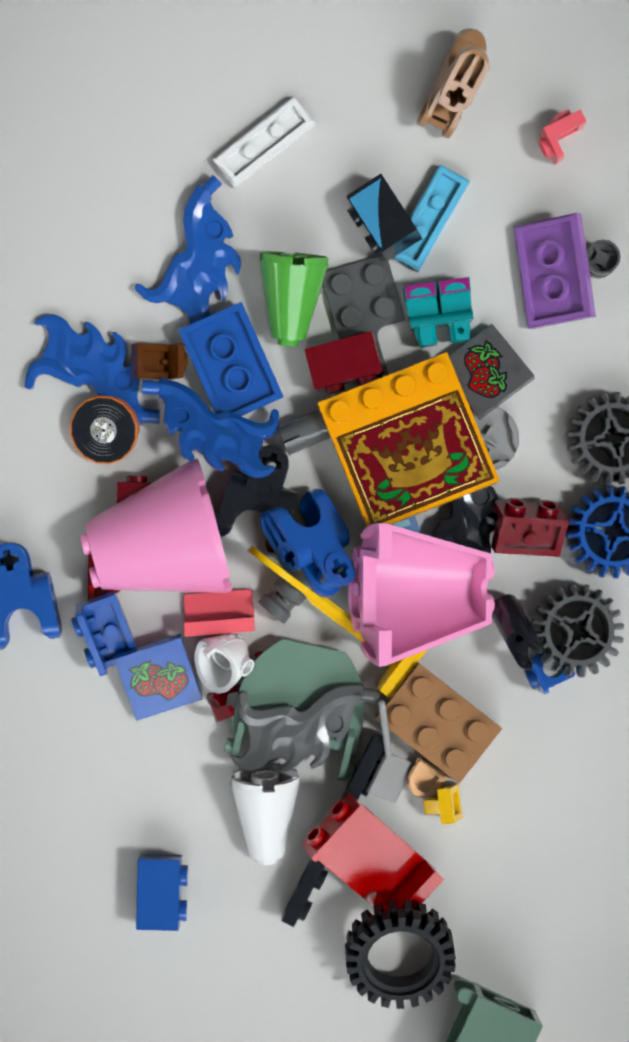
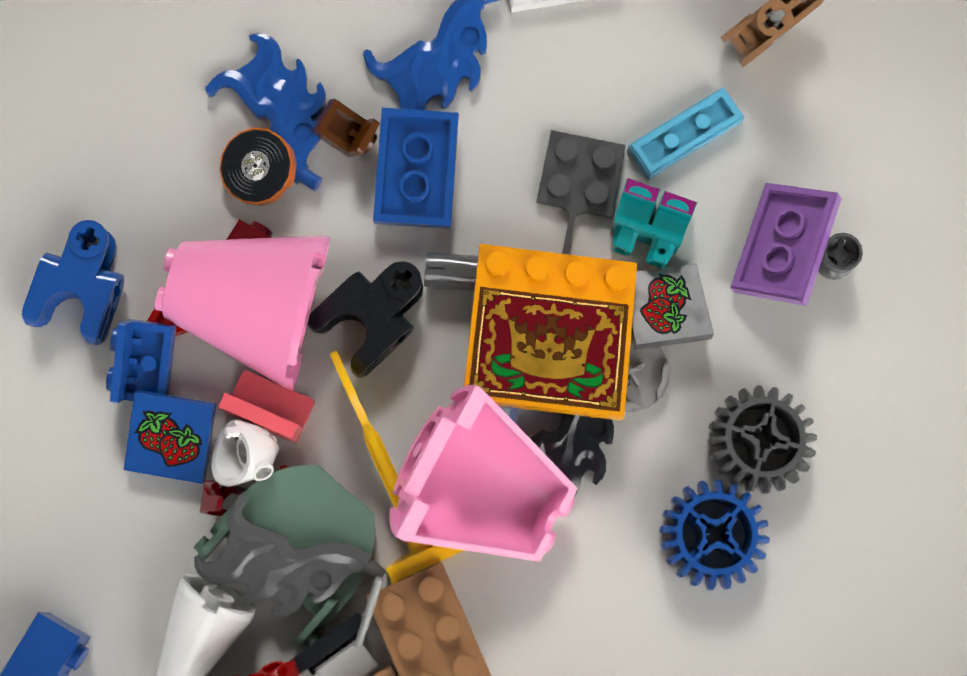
camera: 20 degrees right, 10 degrees down
(212, 434) = (360, 222): blue piece -> none
(279, 607) = (330, 429): dark grey wheel -> none
(291, 292) = (512, 128): bright green cone -> none
(312, 548) = (398, 387): blue piece -> none
(344, 362) = (529, 221): dark red brick -> none
(383, 217) = (642, 105): black brick -> none
(516, 629) = (561, 581): black piece -> none
(529, 528) = (629, 485): dark red bracket -> none
(537, 677) = (558, 645): blue bracket -> none
(561, 127) = (858, 112): coral bracket -> none
(585, 616) = (613, 601): dark grey gear -> none

